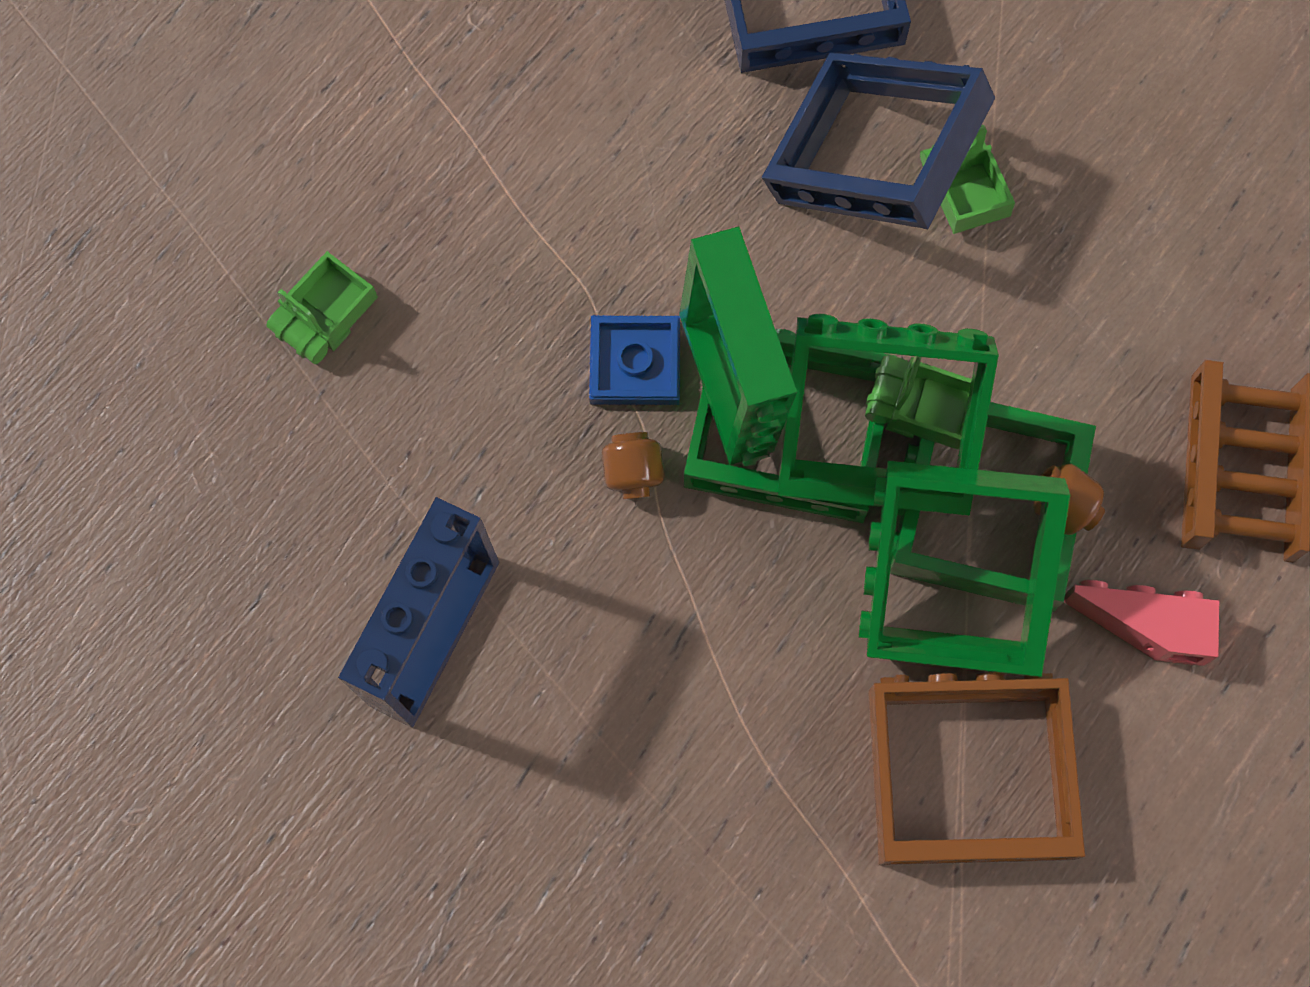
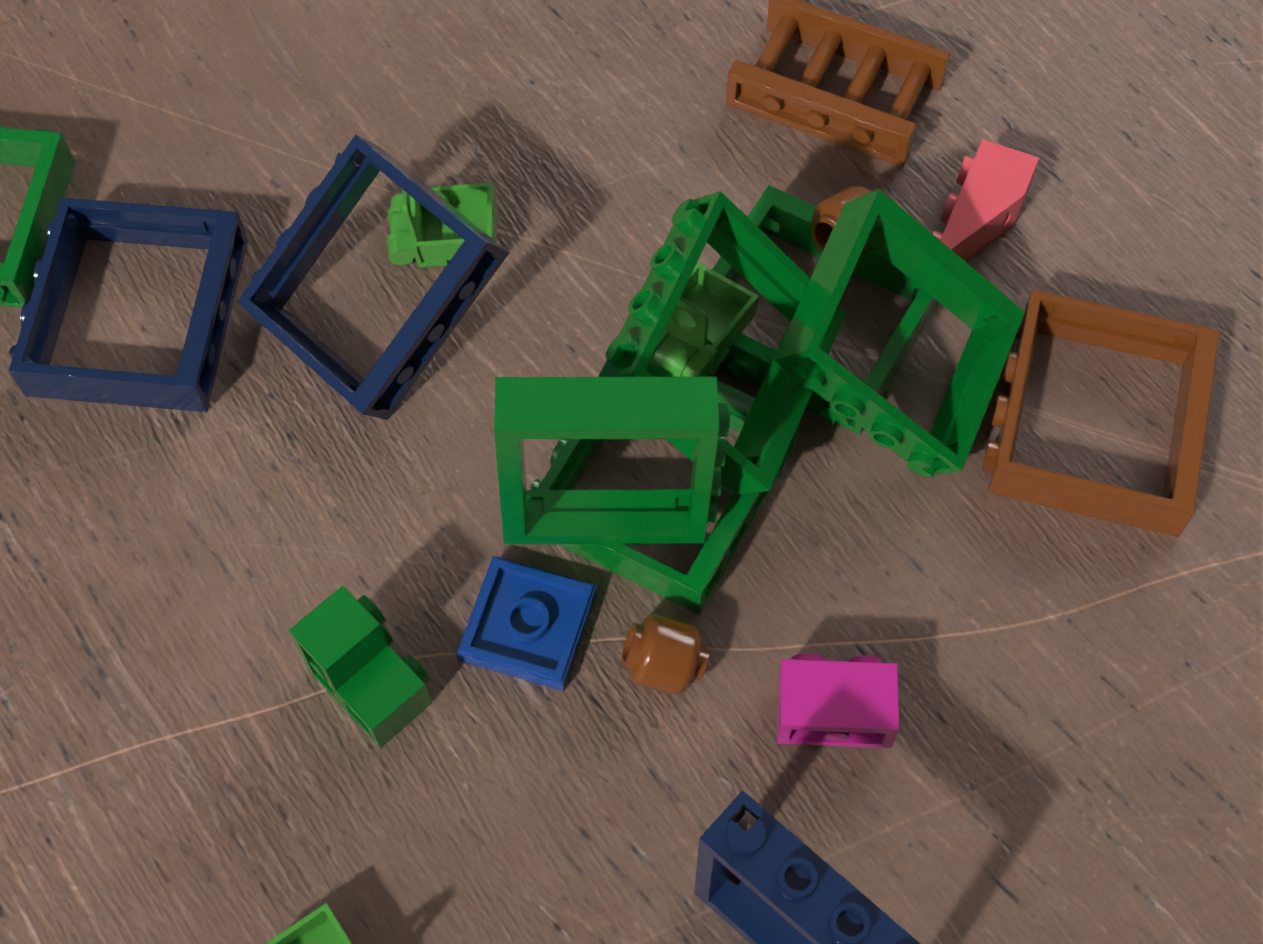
camera: 75 degrees left, 10 degrees down
(555, 248) = (353, 661): none -> green brick
(628, 603) = (837, 702): none -> dark pink brick

